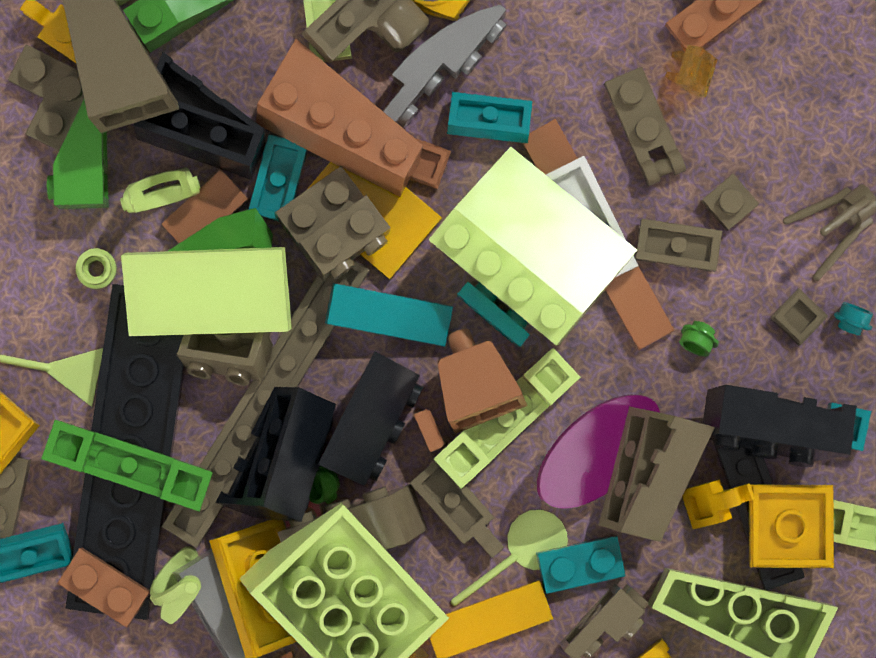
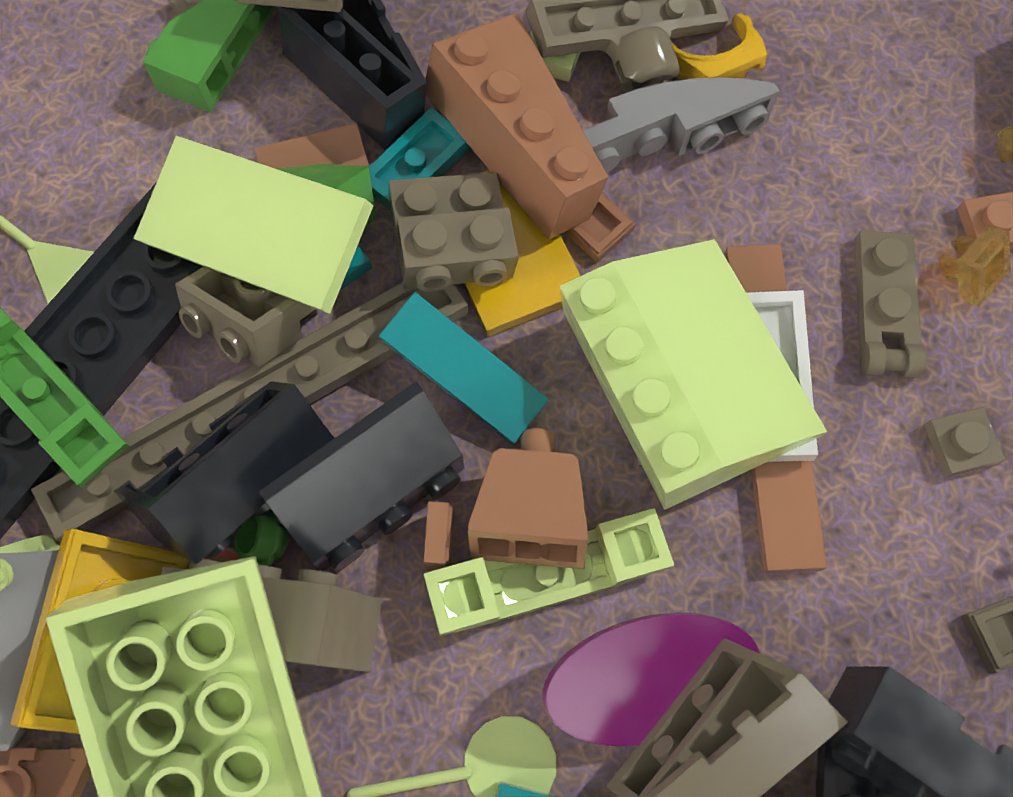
camera: 25 degrees right, 15 degrees down
(83, 265) = (141, 154): yellowish green plate -> none
(136, 201) = (244, 105): yellowish green helmet -> none
(457, 508) = (423, 663): dark tan plate -> none
(482, 300) = (589, 410): teal plate -> none
(489, 117) = (700, 206): teal plate -> none
(678, 245) = (878, 462): dark tan plate -> none
(698, 338) = (861, 589): bright green plate -> none

